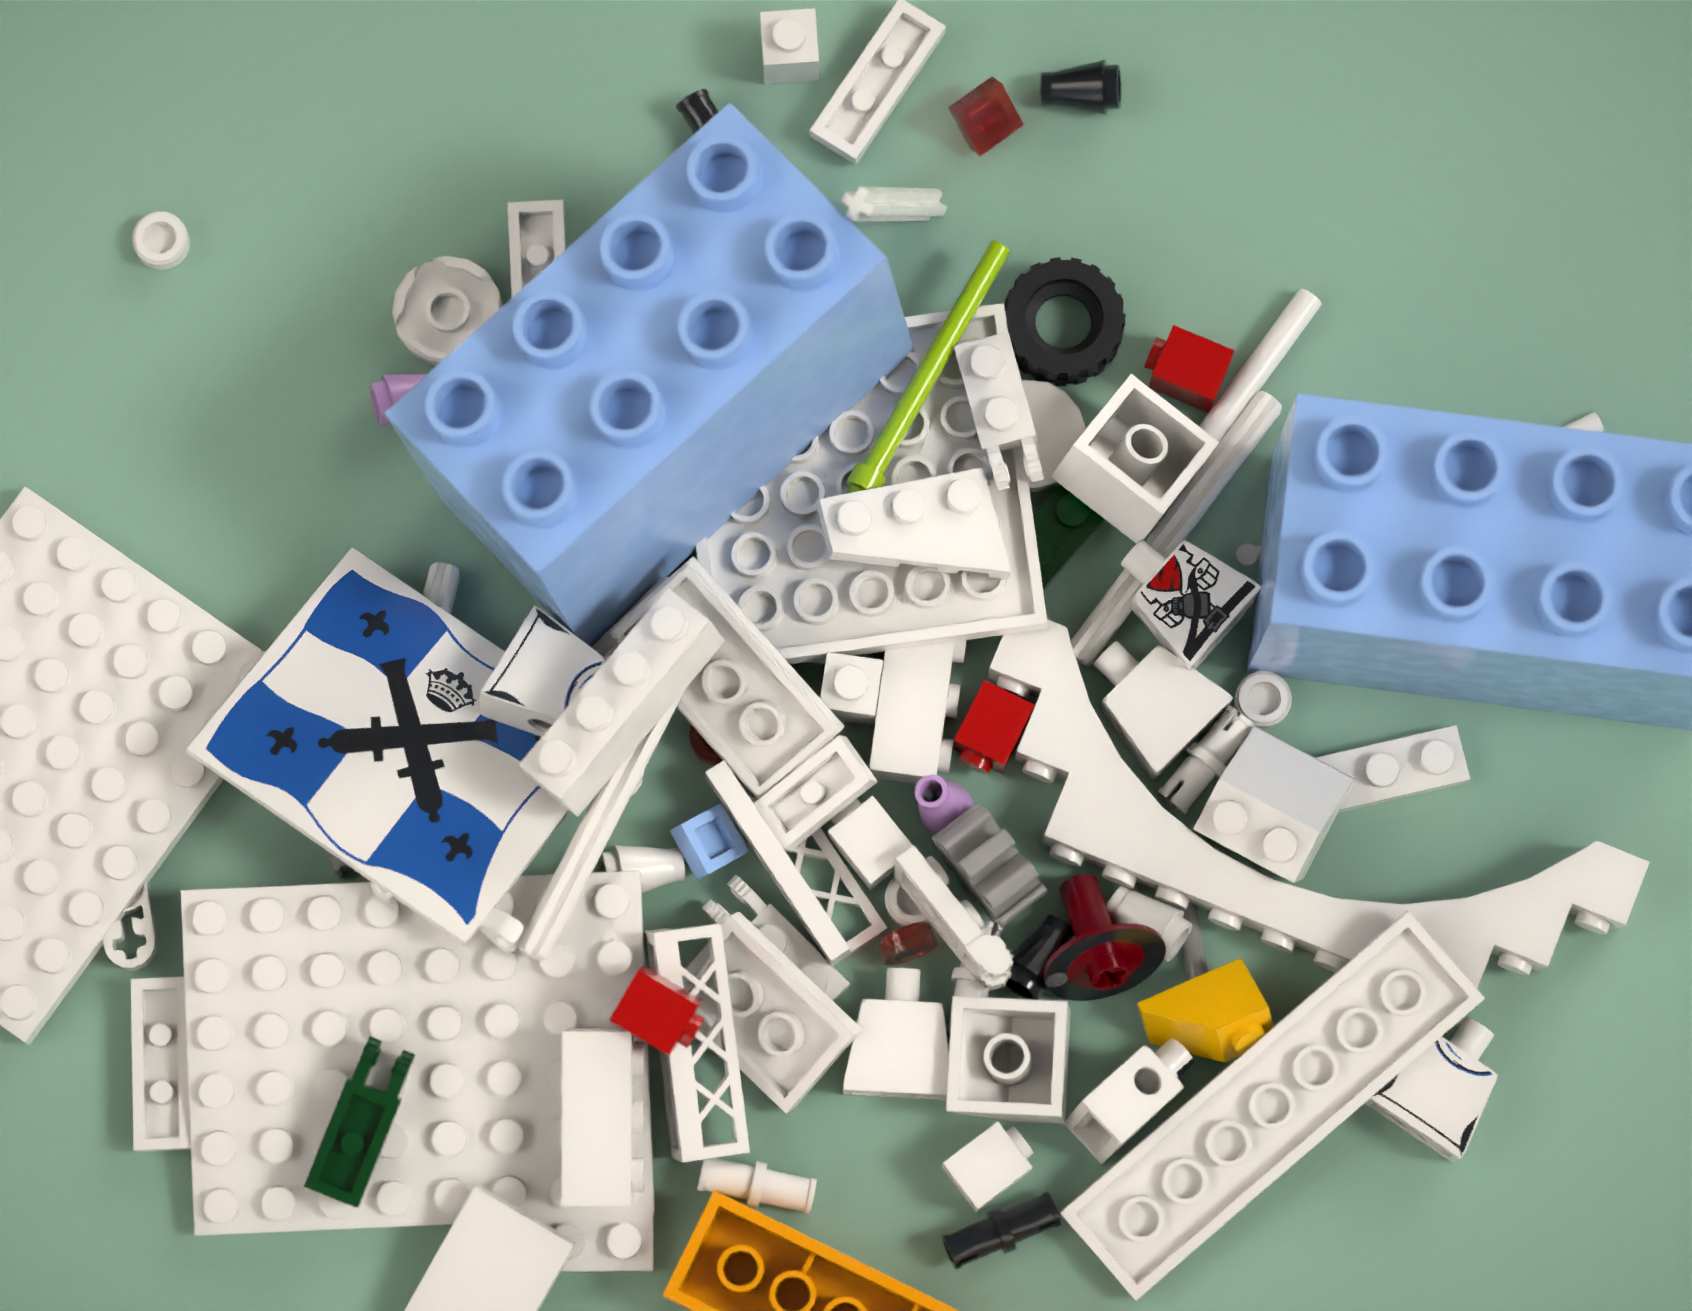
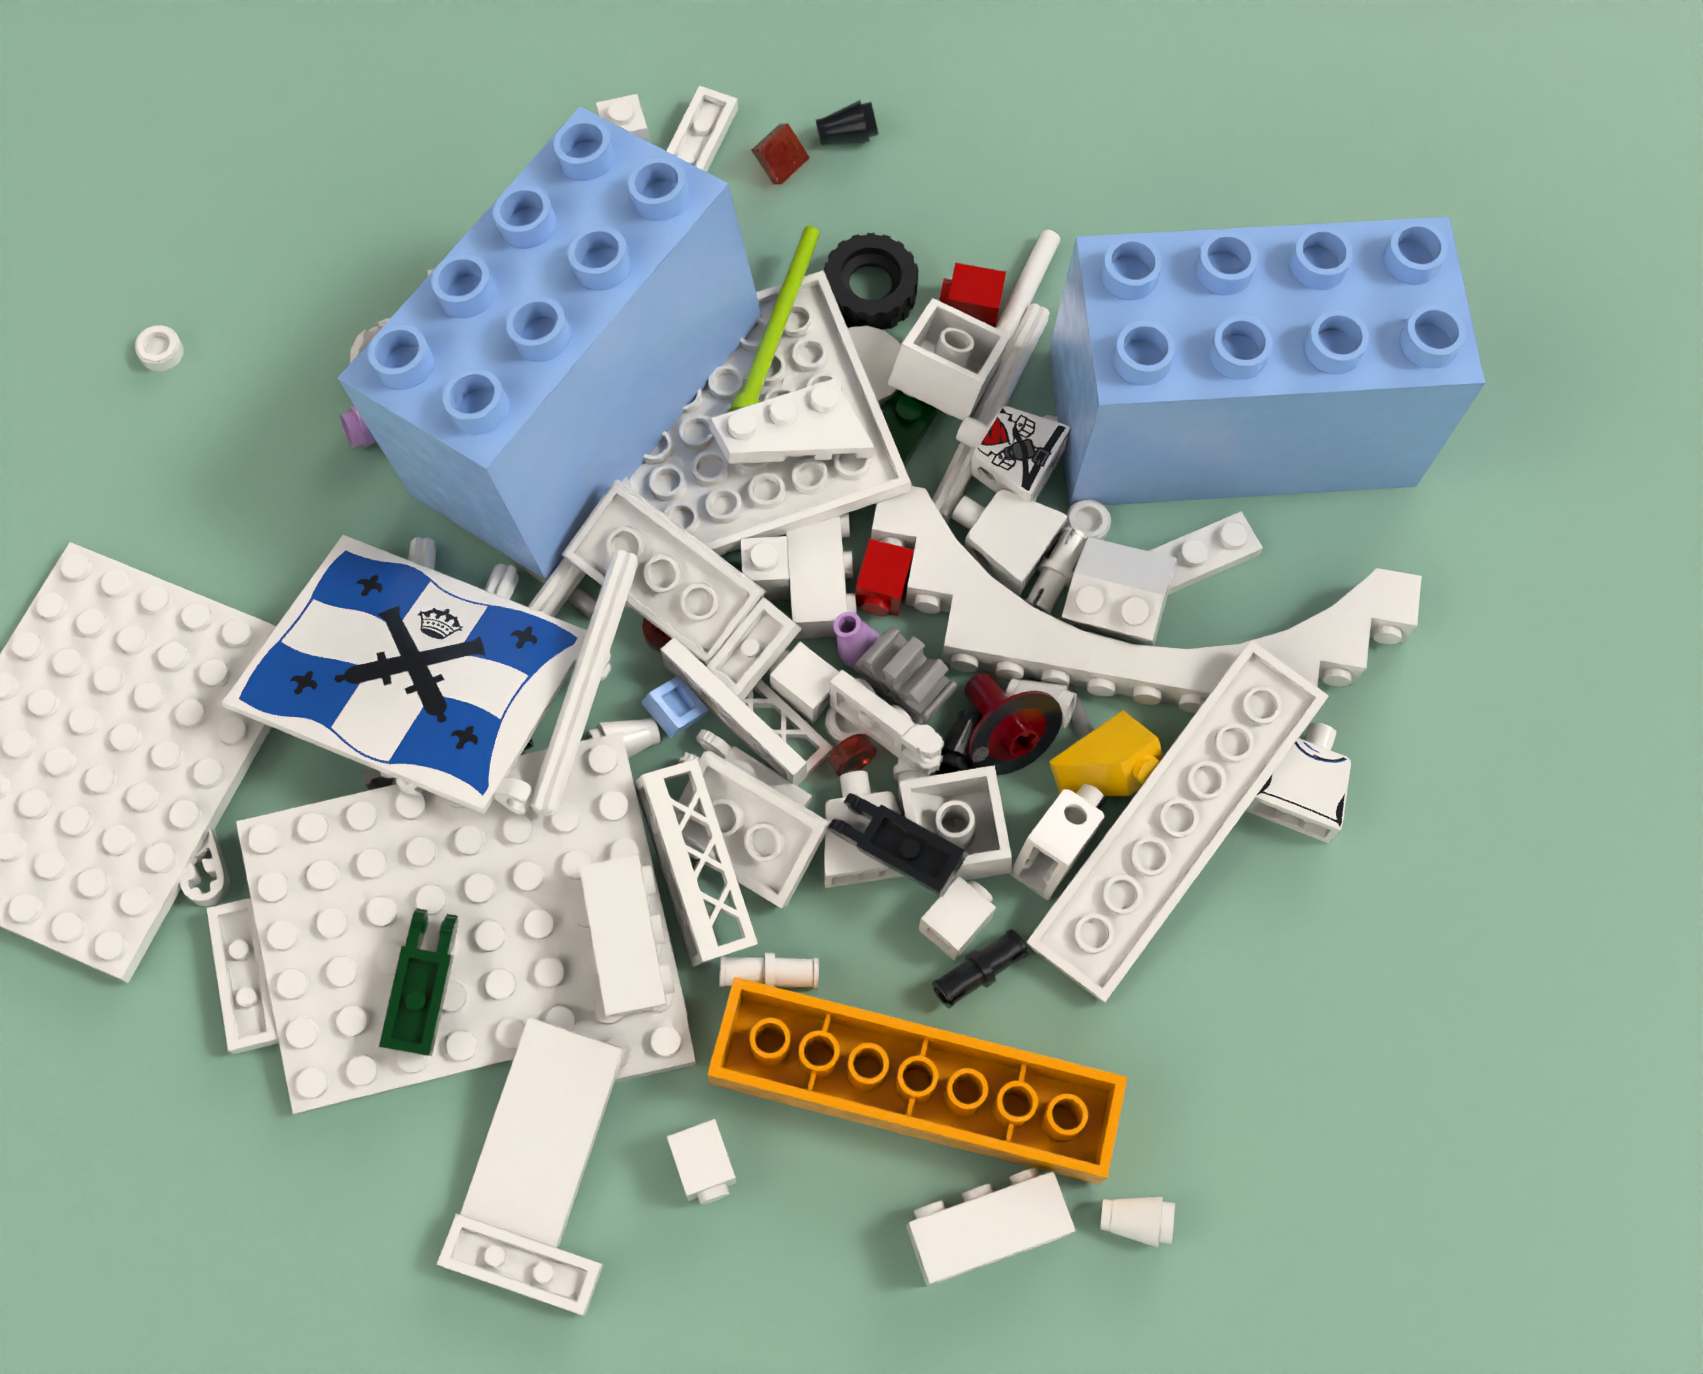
camera: 15 degrees left, 10 degrees down
(538, 675) = (518, 599): white torso -> none
(622, 702) = (580, 591): white brick -> none
(658, 1011) = (658, 834): red brick -> none
(893, 204) = (703, 157): white axle -> none
(937, 1078) = (902, 845): none -> black hinge
(998, 404) = (836, 336): white hinge -> none

